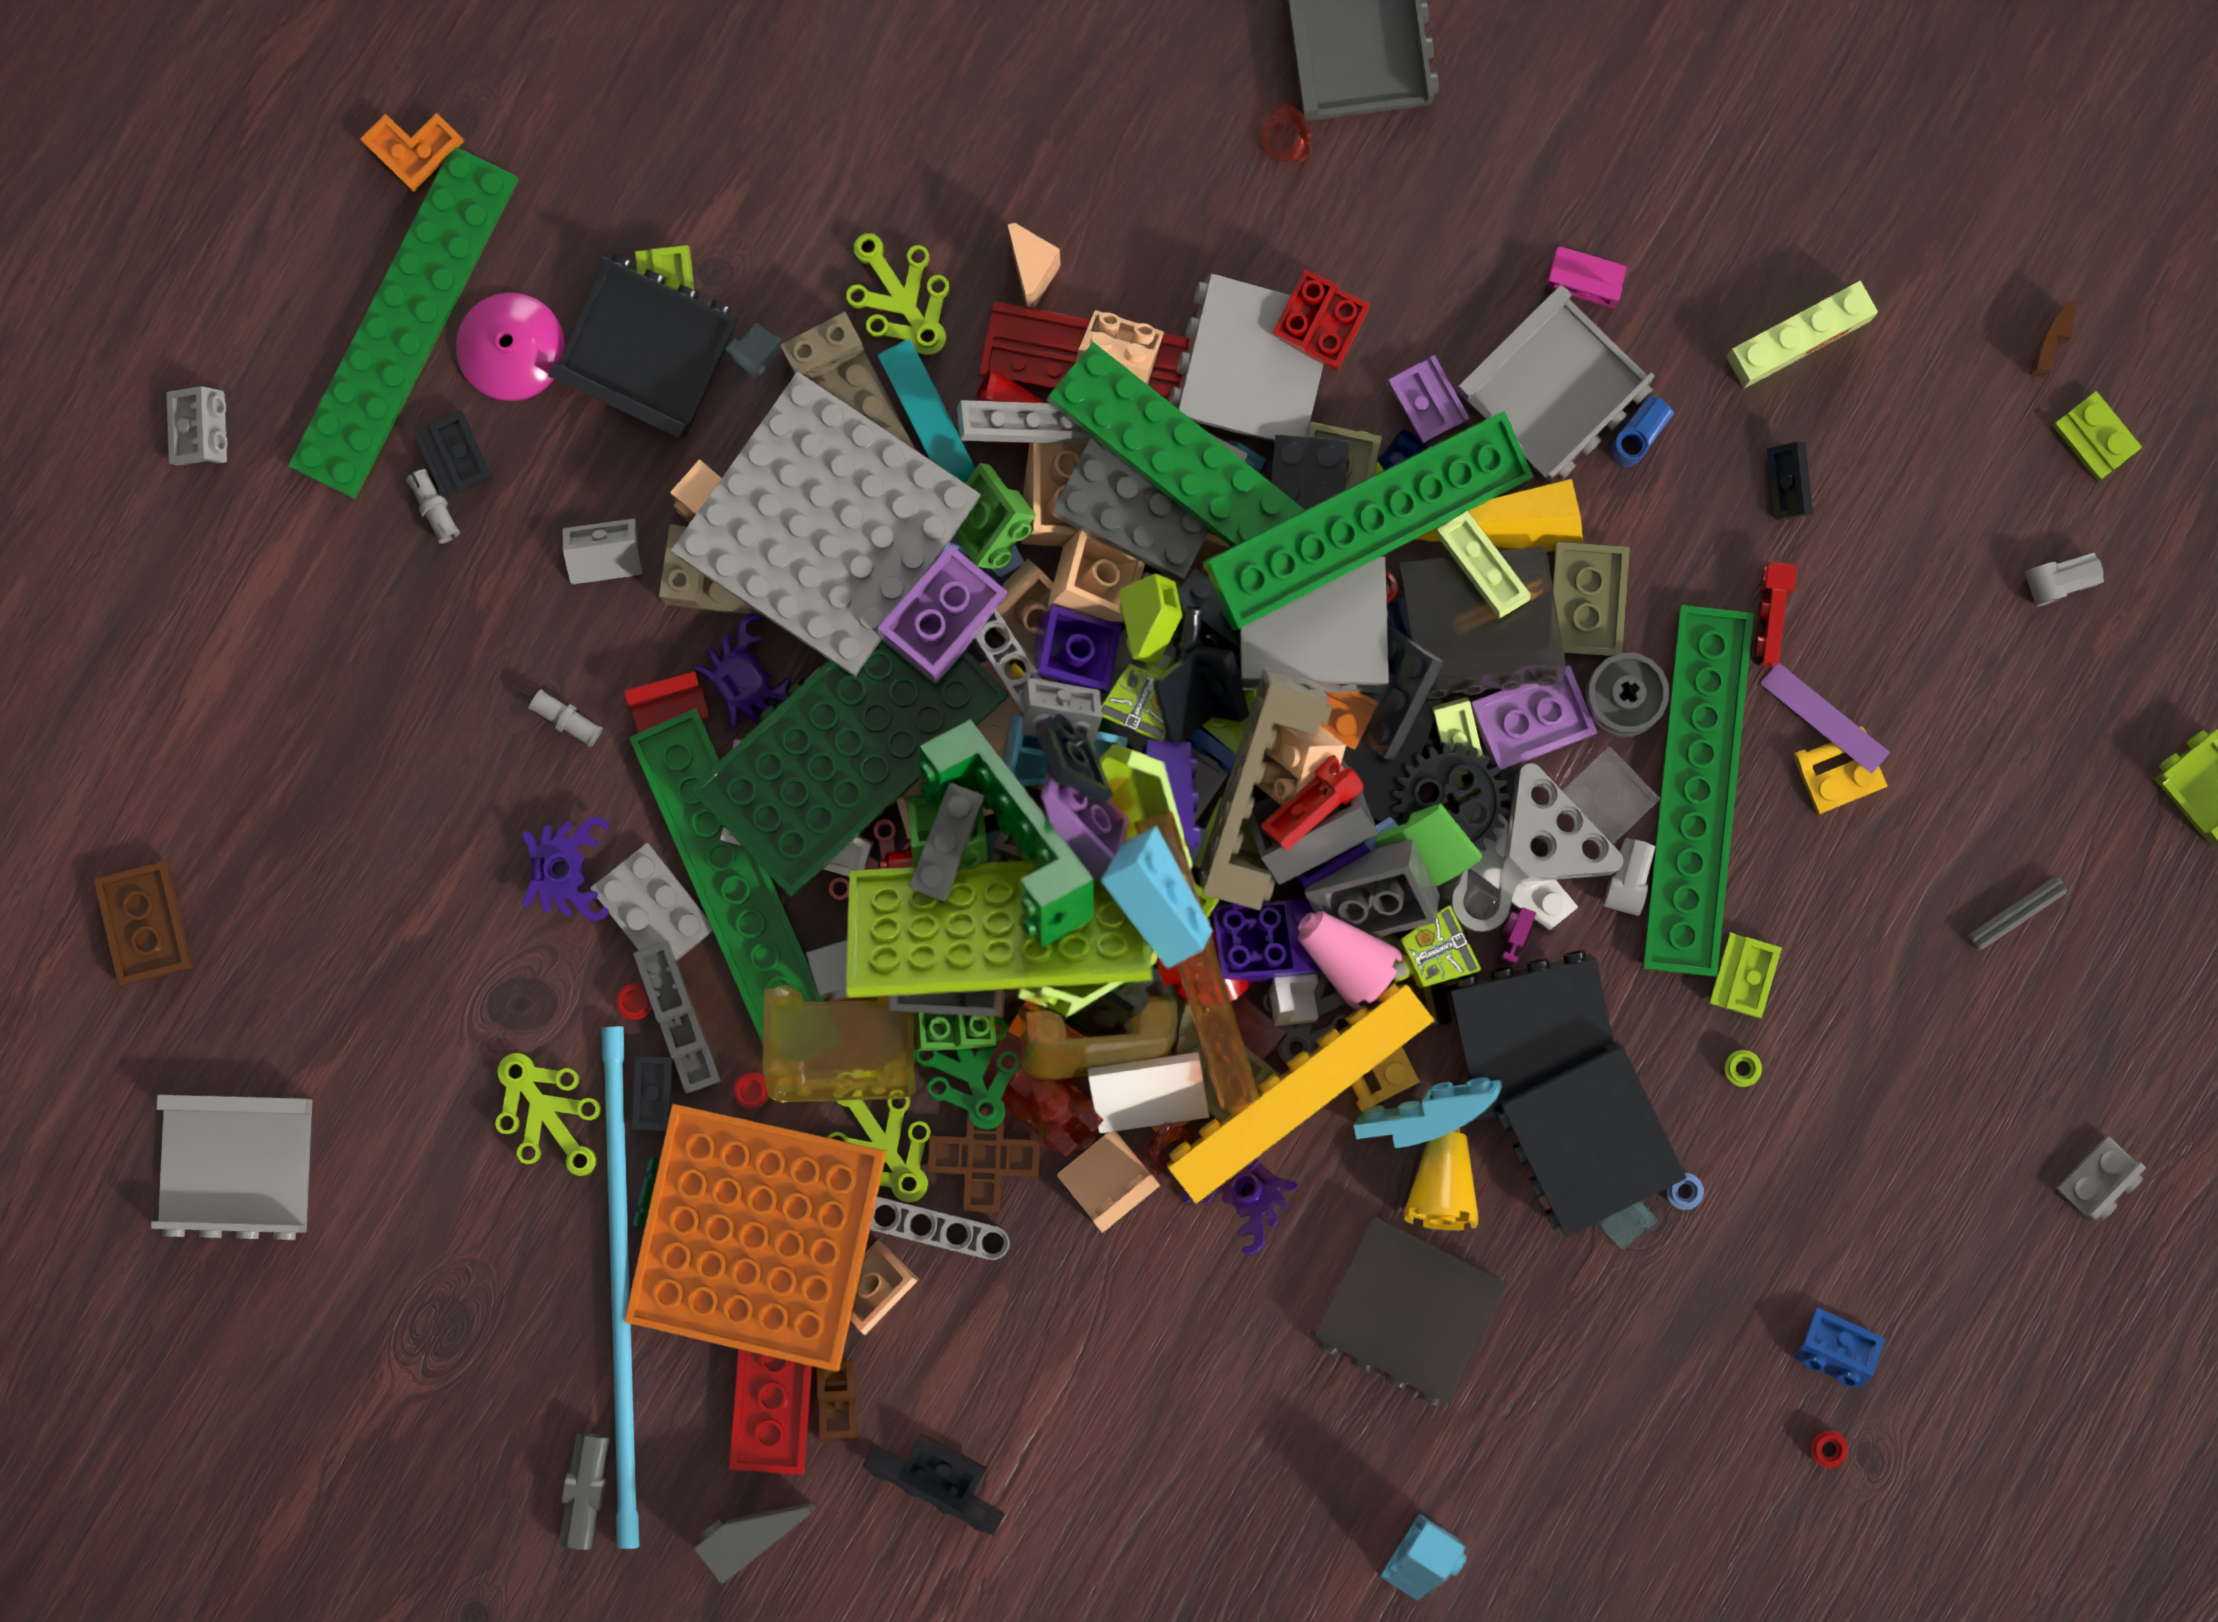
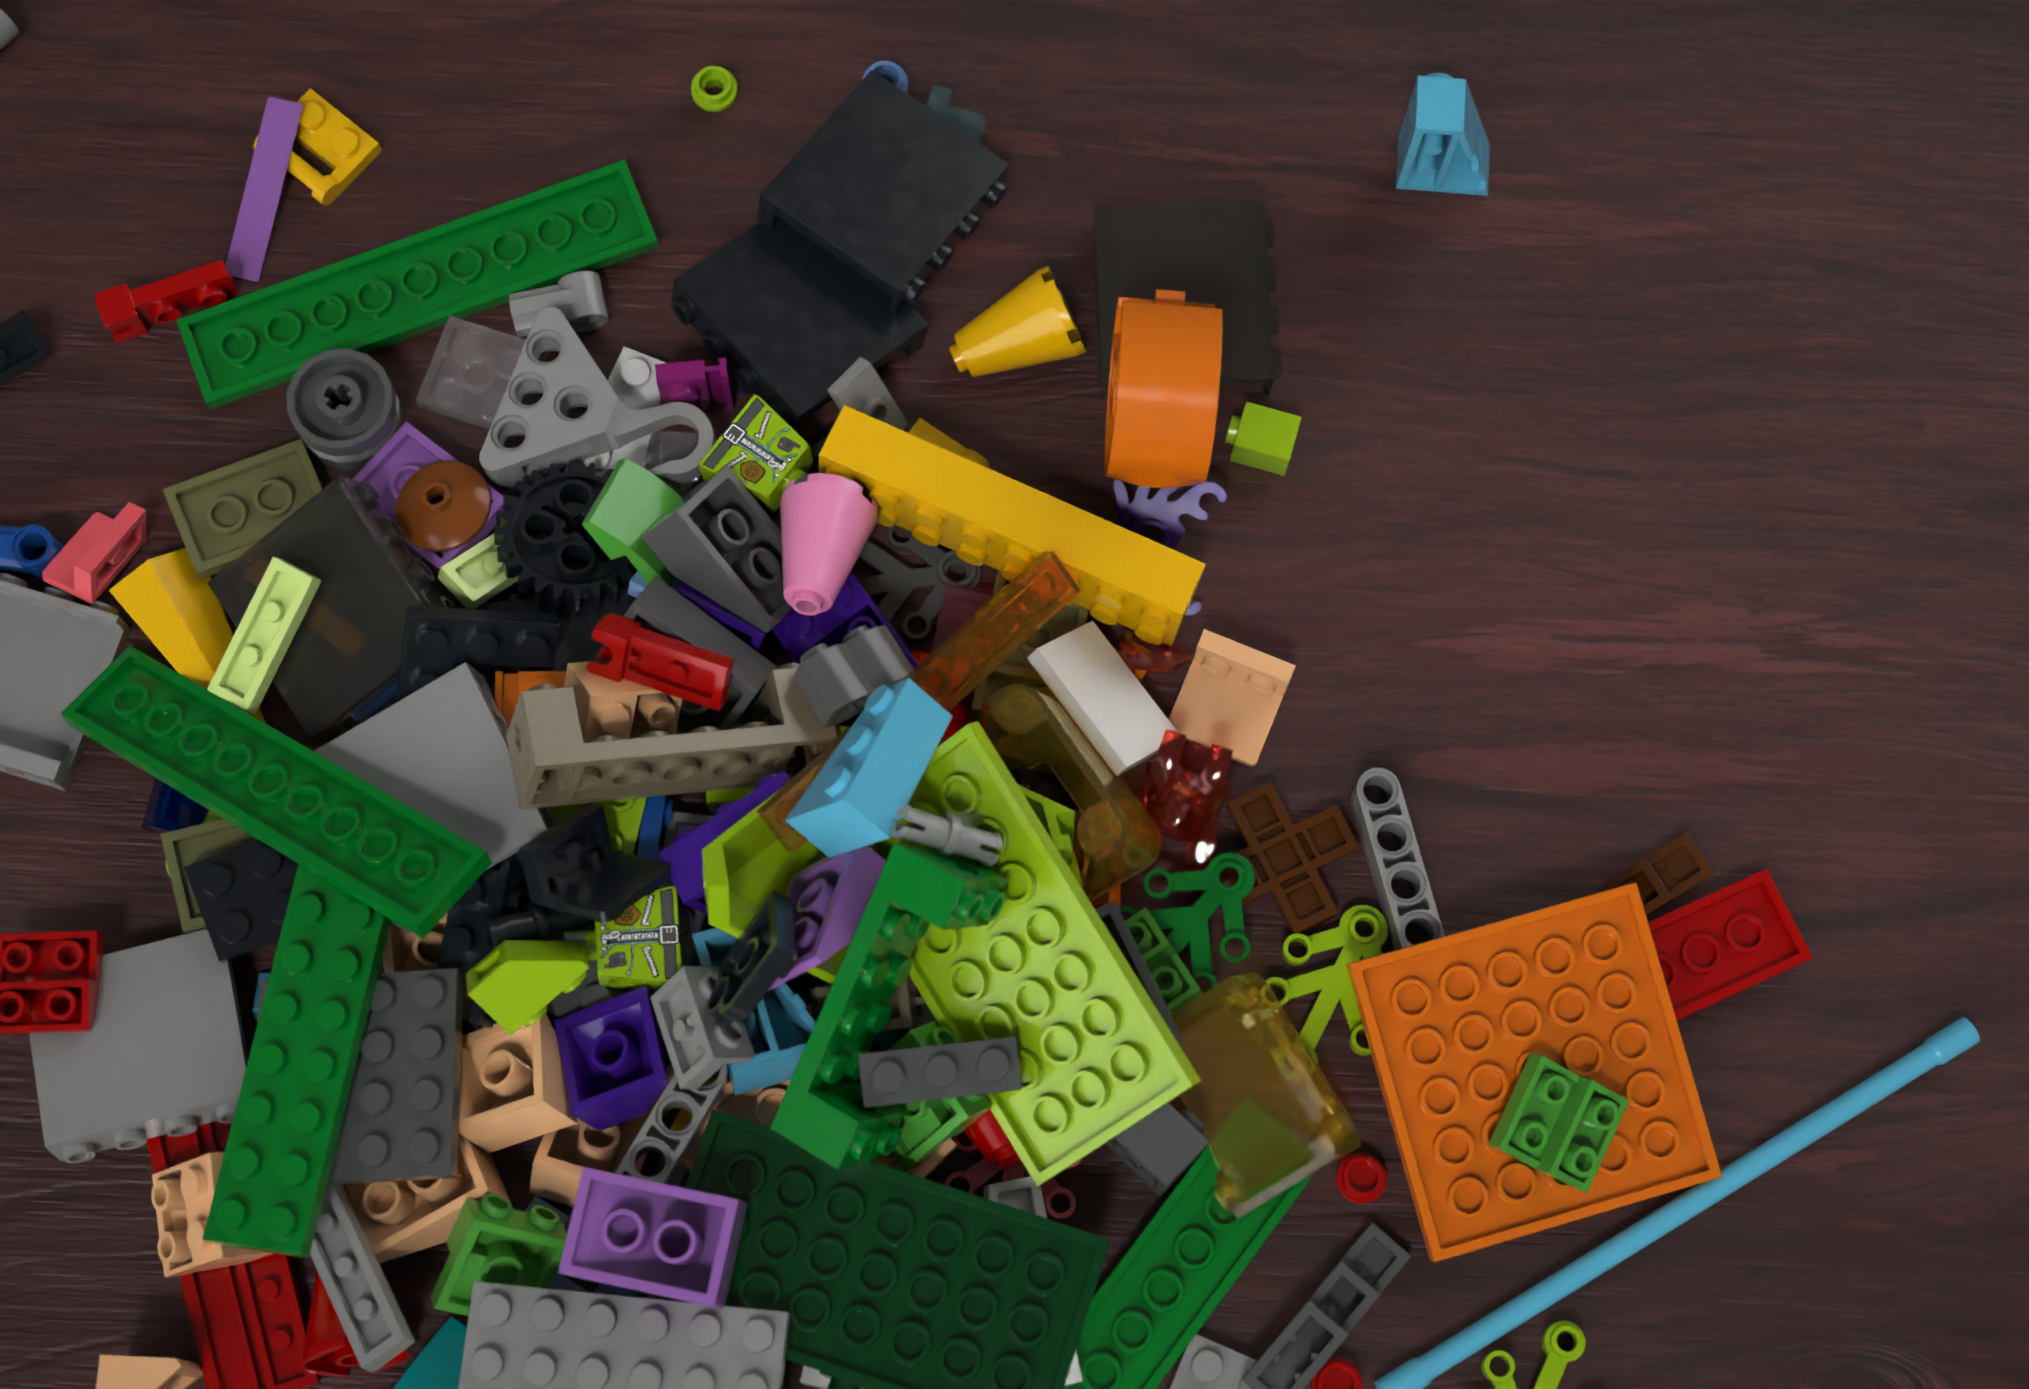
camera: 125 degrees left, 10 degrees down
(583, 1491) = (1941, 1116): dark grey piece -> none
(646, 1193) = (1554, 1237): dark green axle -> none
(652, 1093) = (1434, 1298): black plate -> none
(712, 1231) = (1559, 1122): none -> bright green slope
(743, 1538) = (1874, 886): dark grey slope -> none
(880, 1286) = (1503, 887): light nougat slope -> none
(938, 1477) = (1676, 713): black bracket -> none
(1084, 918) = (947, 835): none -> light grey pin
(1238, 925) = (844, 675): none -> dark grey brick
(1280, 1308) = (1263, 438): none -> lime brick
(1293, 999) = (904, 596): white panel -> none
(1331, 1241) = (1163, 390): none -> orange animal
(1428, 400) = (90, 814): medium lavender plate -> none
(1440, 1113) = (943, 361): medium azure slope -> none
(1441, 1047) = (865, 392): none -> light grey plate
(1506, 737) = (452, 520): none -> dark orange dish
(1608, 483) = (98, 553): none -> coral panel
(1745, 975) = (607, 132): lime plate -> none

